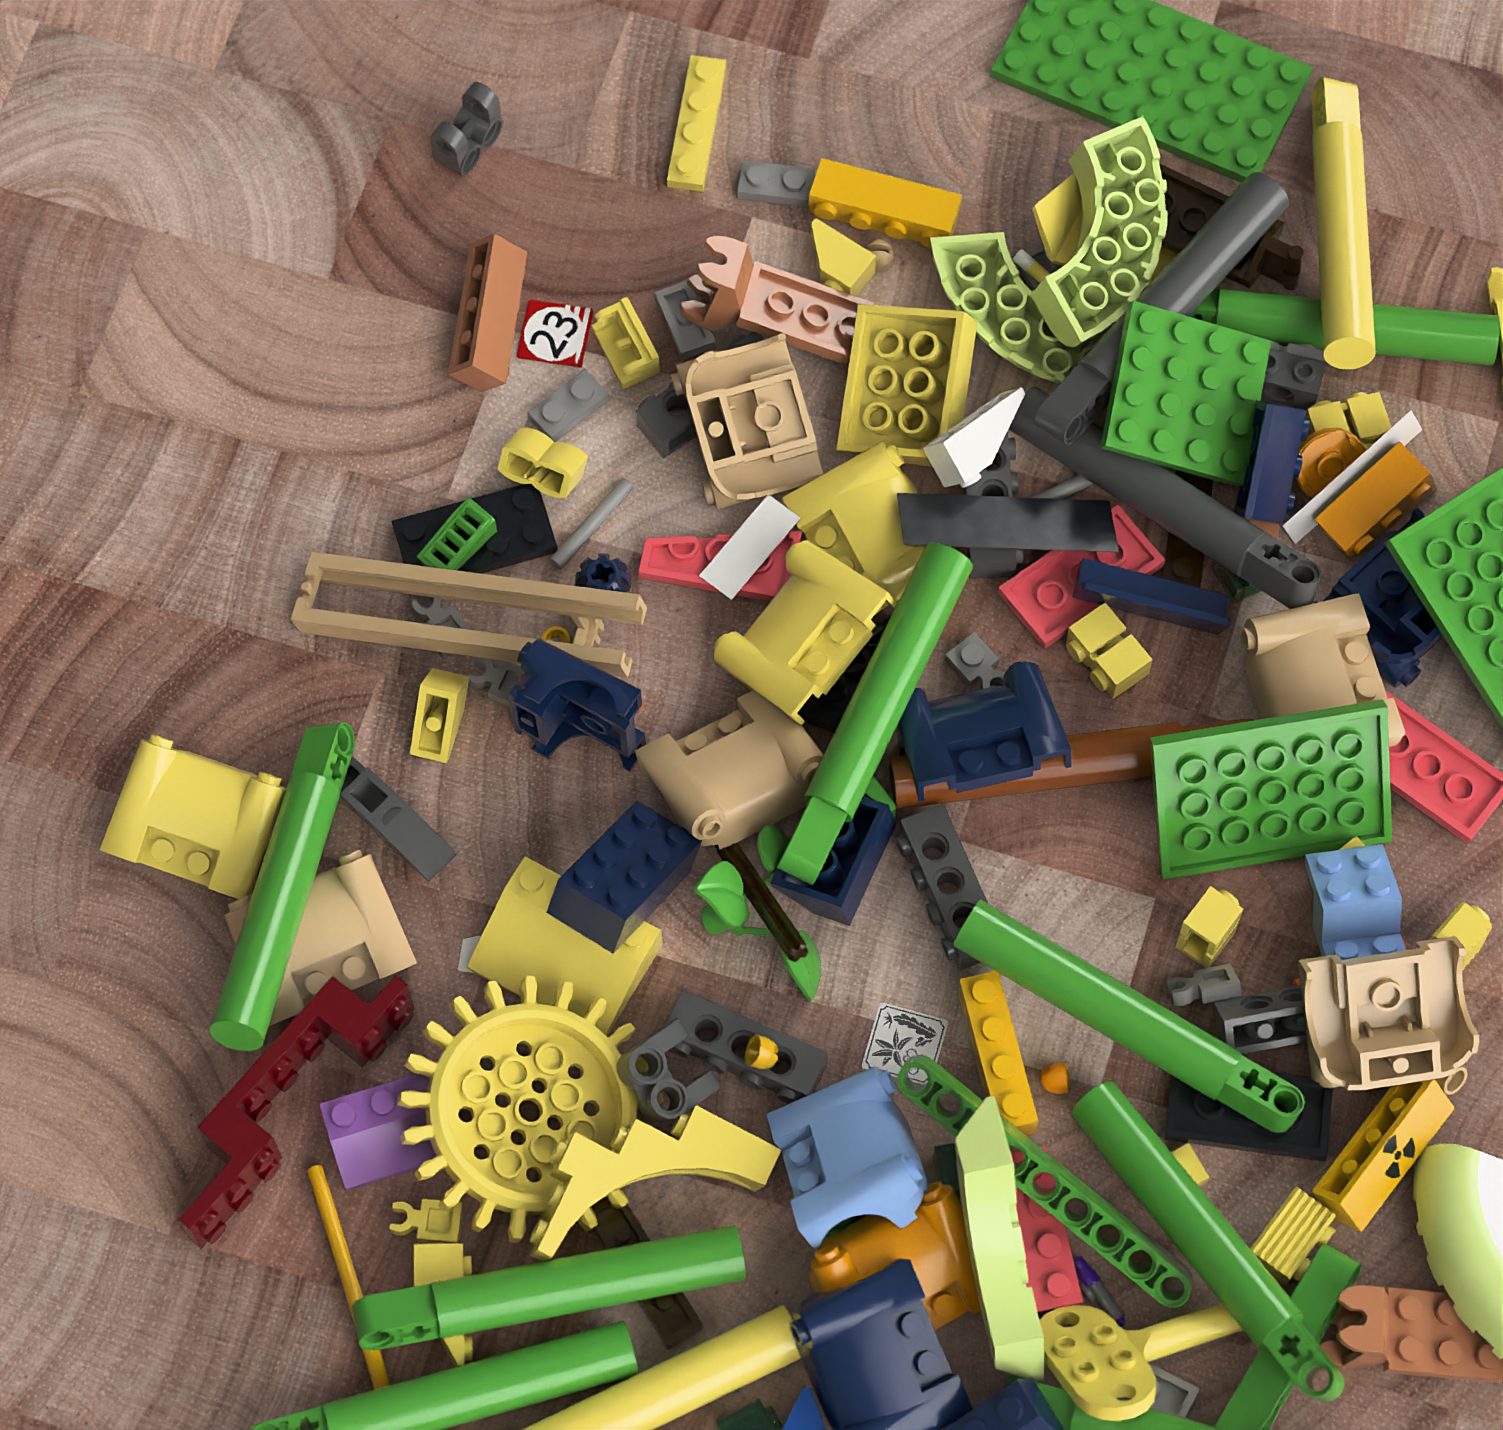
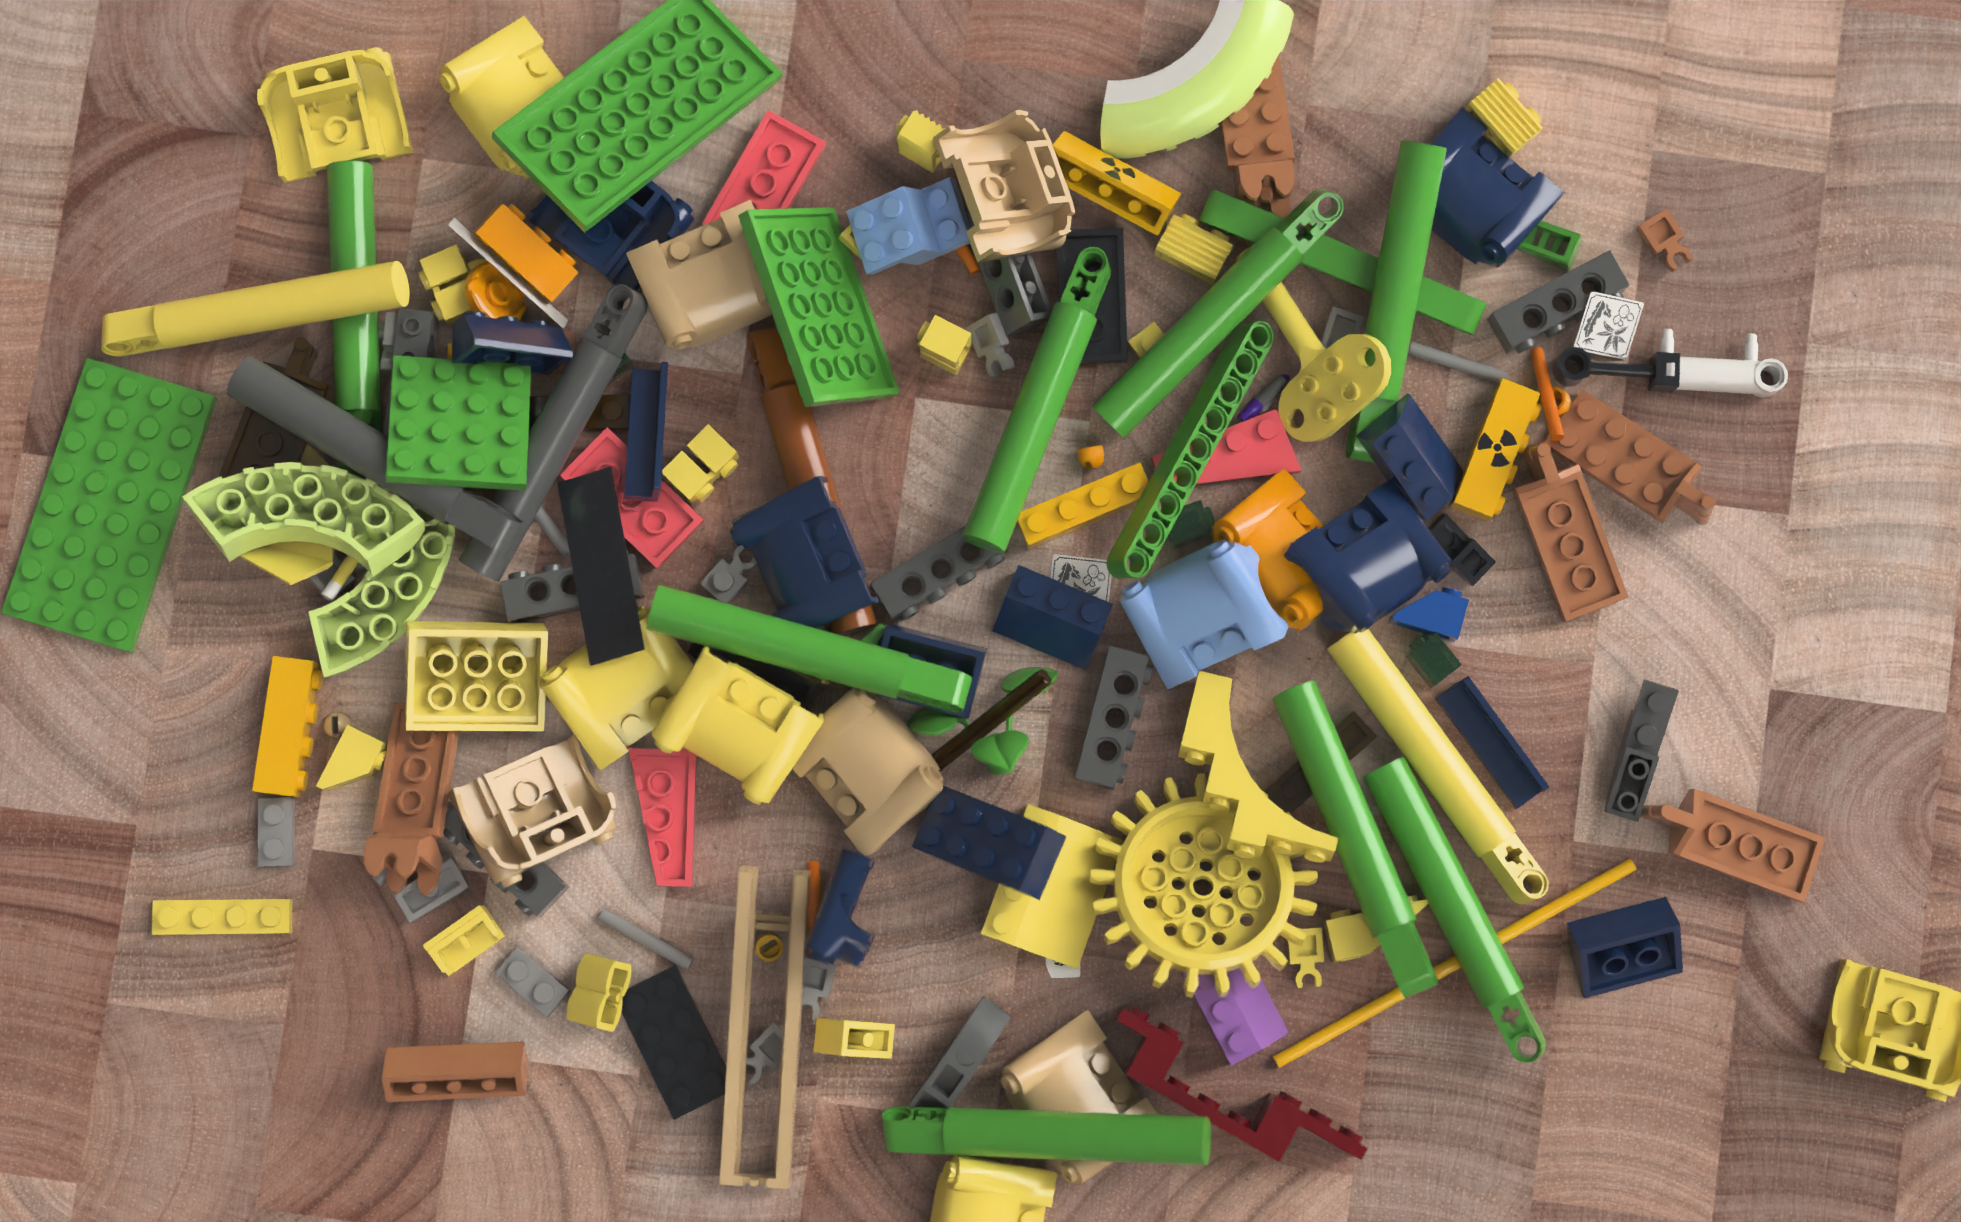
camera: 100 degrees left, 15 degrees up
(457, 521) = (671, 1057): bright green slope -> none
(473, 129) = (268, 1127): dark grey piece -> none
(555, 333) = (459, 1009): sticker -> none
(610, 571) = (695, 914): dark blue piece -> none
(659, 1078) = (1168, 759): dark grey piece -> none
(749, 547) = (652, 791): white sticker -> none
(761, 1052) = (1123, 700): yellow hinge -> none
(874, 1002) = (1052, 617): none -> dark blue slope
(974, 441) = (526, 603): white slope -> none
(997, 1244) = (1265, 476): yellowish green brick -> none

